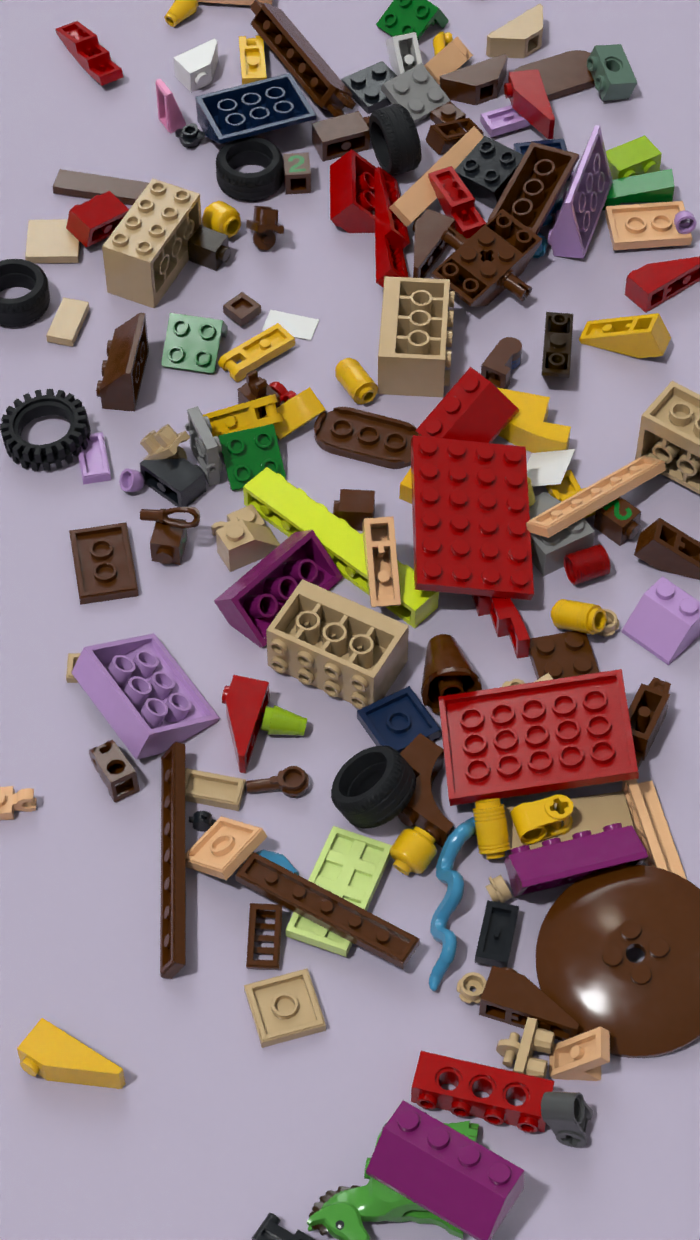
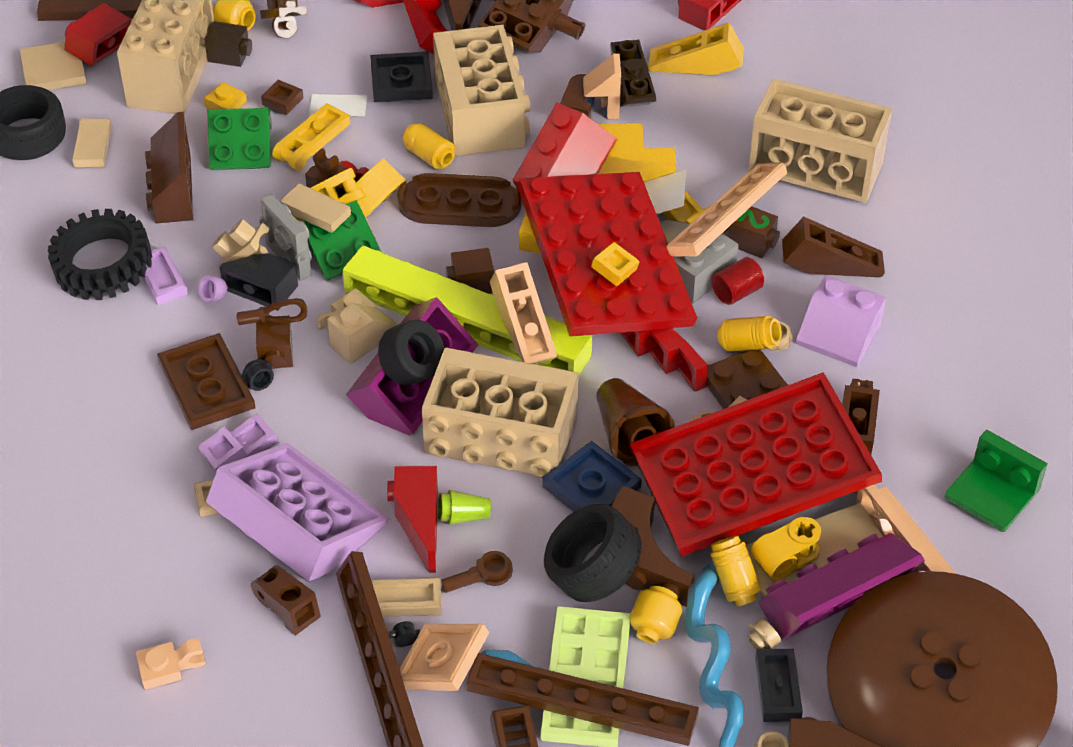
camera: 15 degrees left, 5 degrees down
(116, 626) = (245, 440): none -> lavender slope
(147, 567) = (258, 374): none -> black plate
(193, 301) = (225, 97): none -> yellow plate
(234, 425) = (316, 207): none -> tan tile
(258, 576) = (395, 356): none -> black tyre
(352, 308) = (401, 76): none -> black plate
(470, 532) = (615, 264): none -> yellow plate
(529, 352) = (605, 83): none -> light nougat slope

